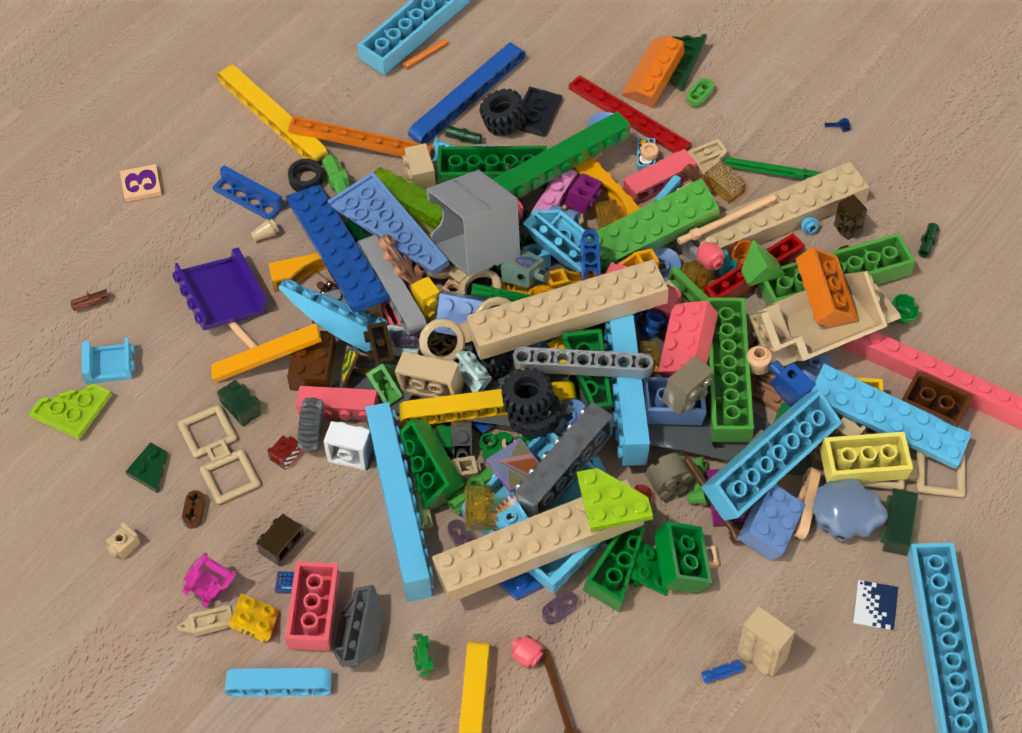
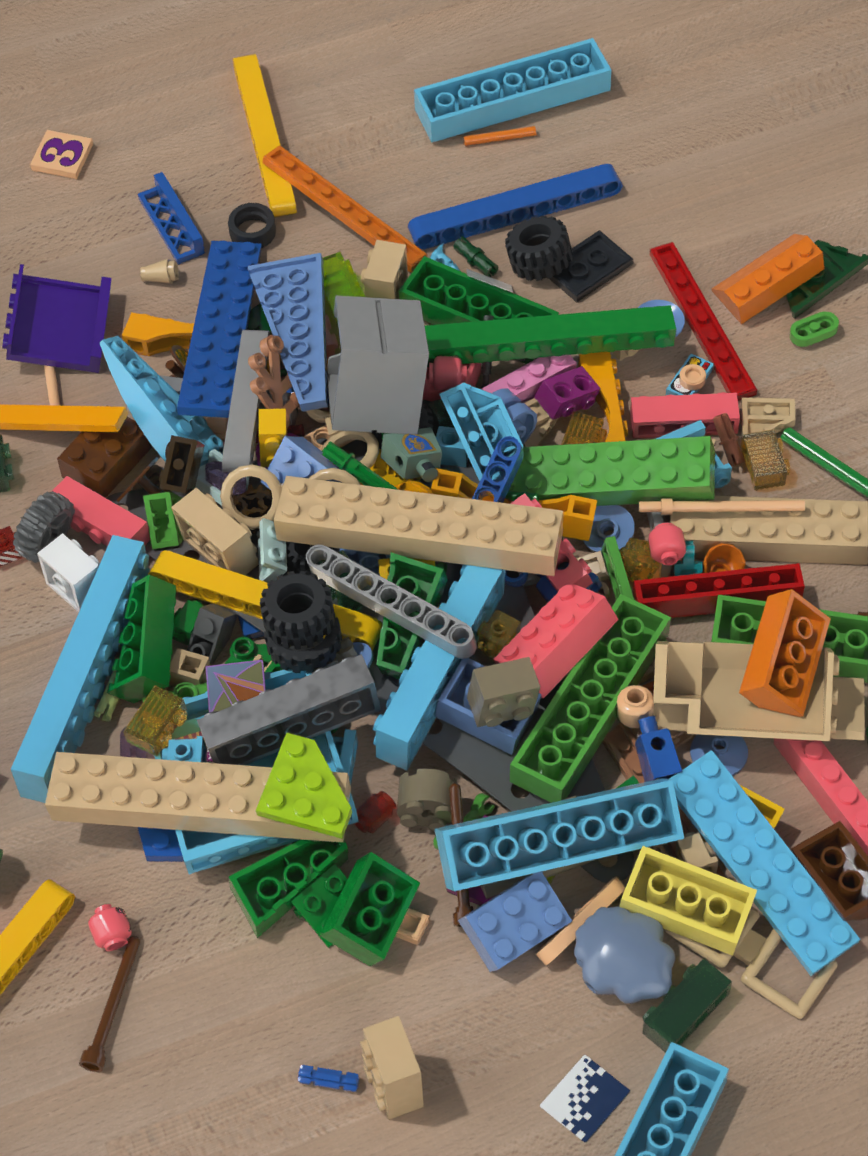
camera: 30 degrees right, 0 degrees up
(336, 175) = (288, 241): bright green piece -> none
(558, 603) = (188, 895): clear purple beam -> none
(652, 324) = (535, 596): blue wheel -> none
(760, 265) = (722, 585): bright green slope -> none
(809, 225) = (838, 565): medium azure plate -> none

